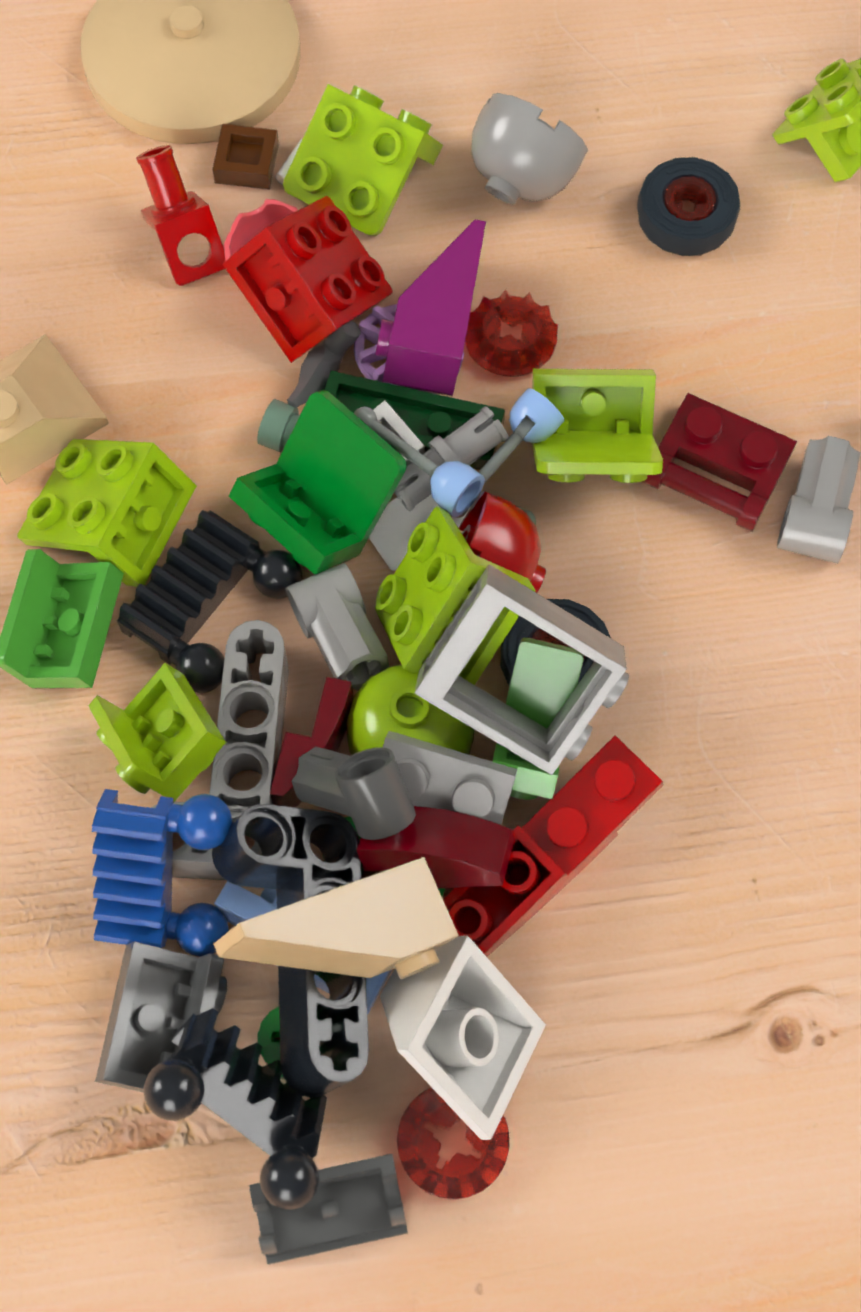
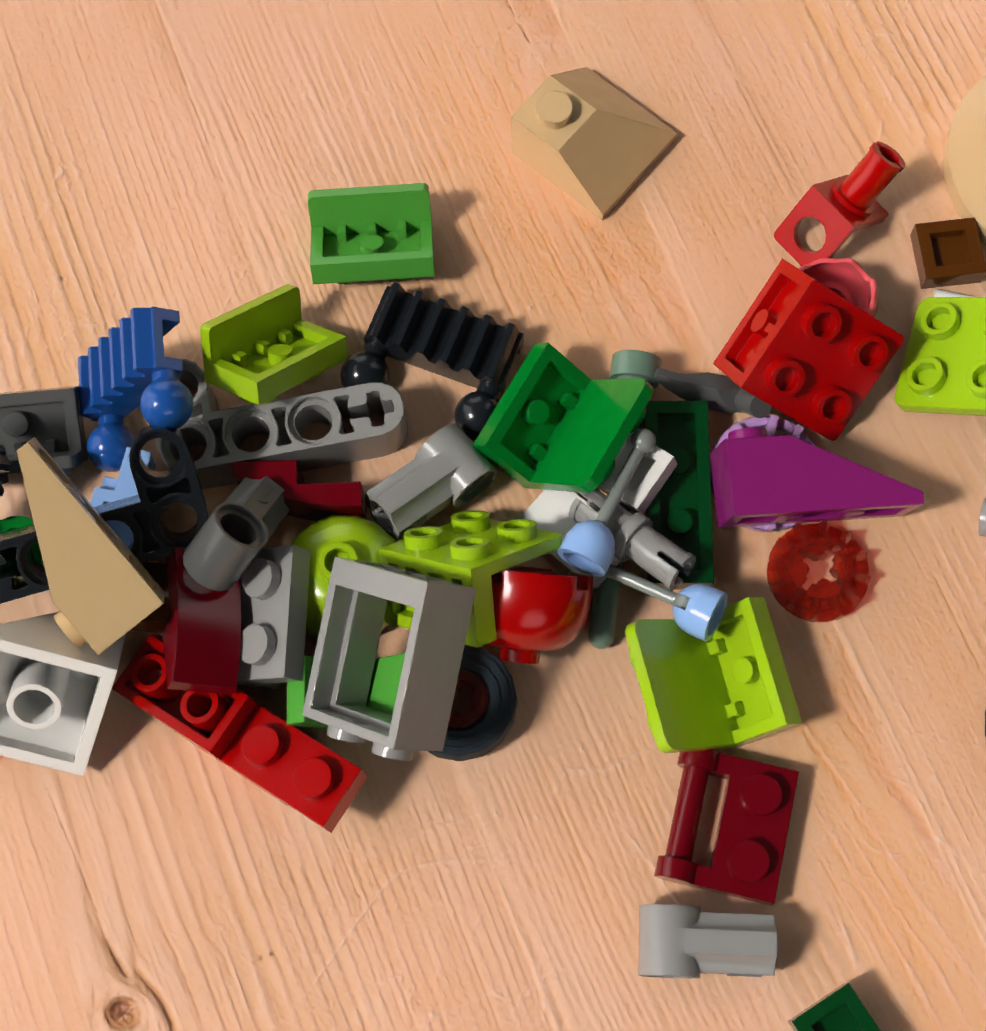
camera: 80 degrees right, 5 degrees up
(110, 502) = (501, 245): lime bracket -> none

